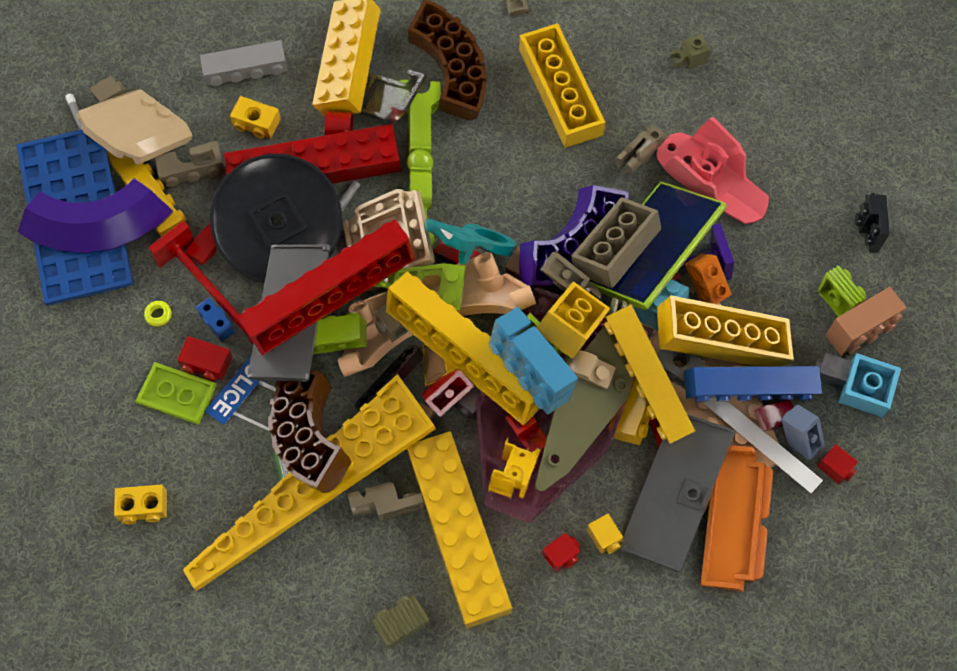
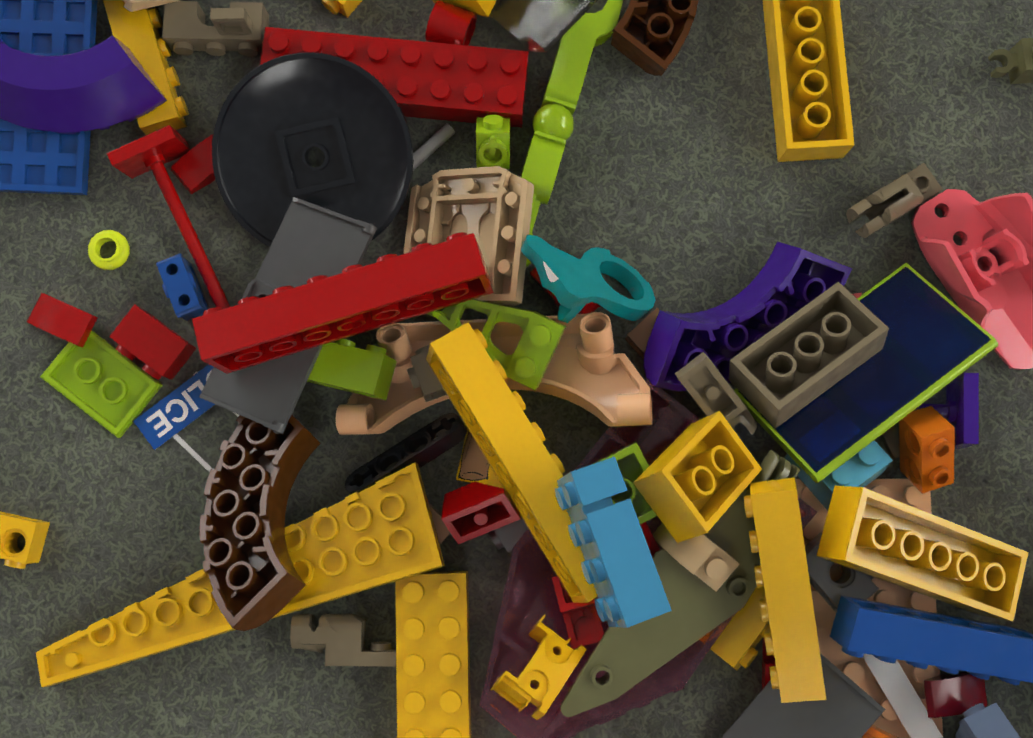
camera: 20 degrees right, 15 degrees up
(139, 361) = (62, 320): none -> red slope
(385, 179) = (493, 141): none -> lime brick

